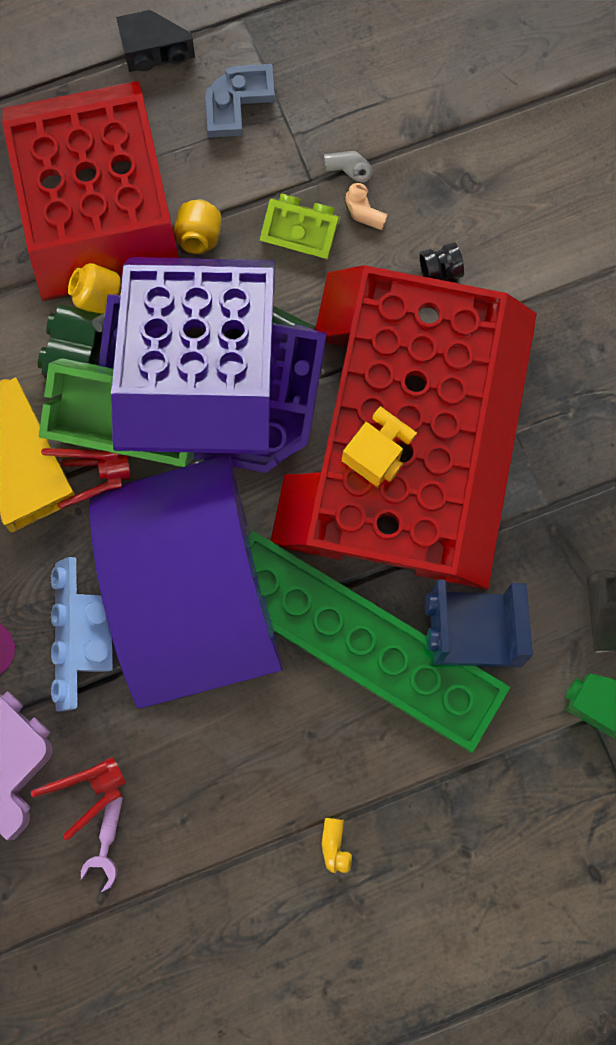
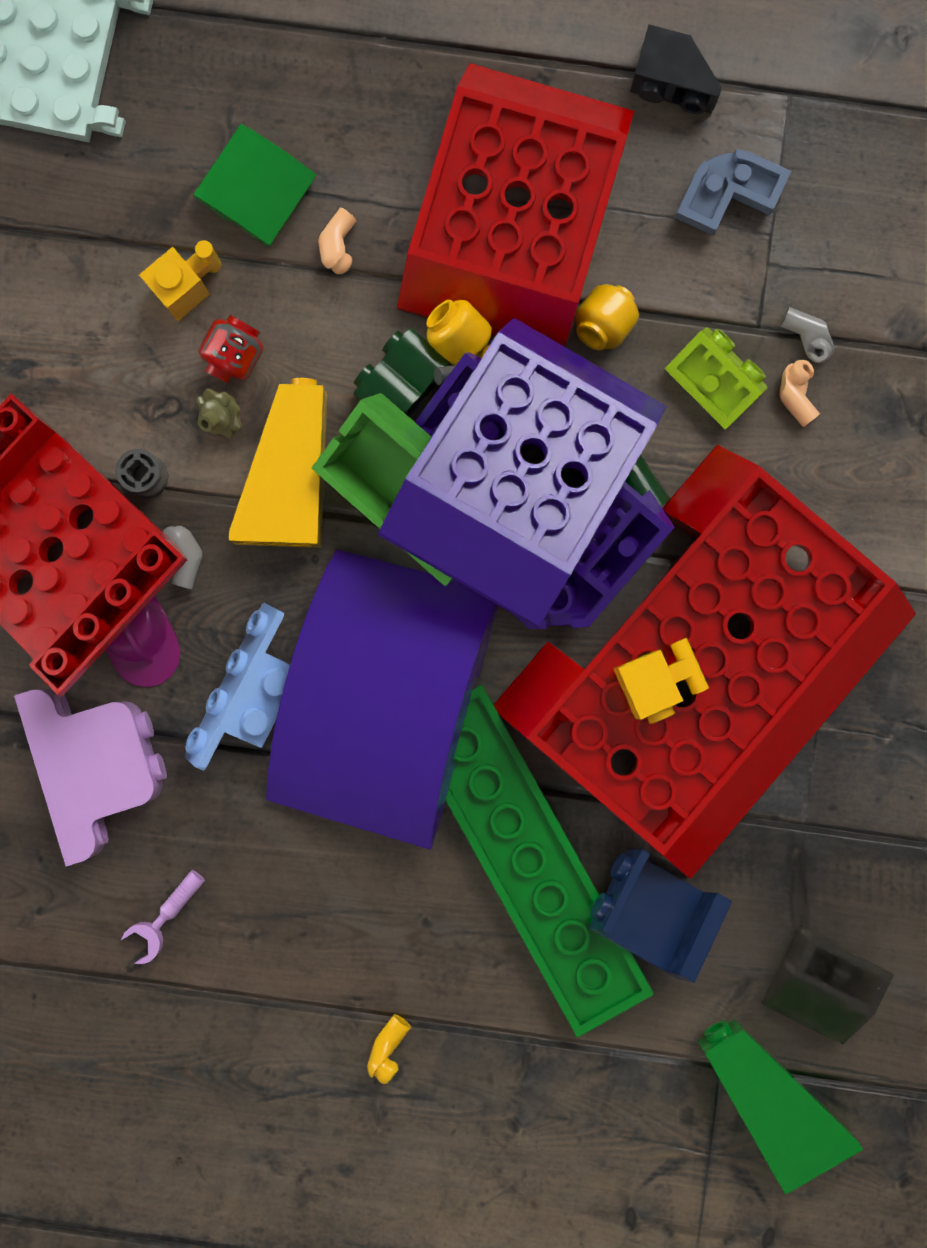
camera: 30 degrees right, 10 degrees up
(102, 777) = (194, 853): red plant -> none
(110, 466) = (366, 534): red plant -> none
(442, 263) = (845, 503): black wheel -> none

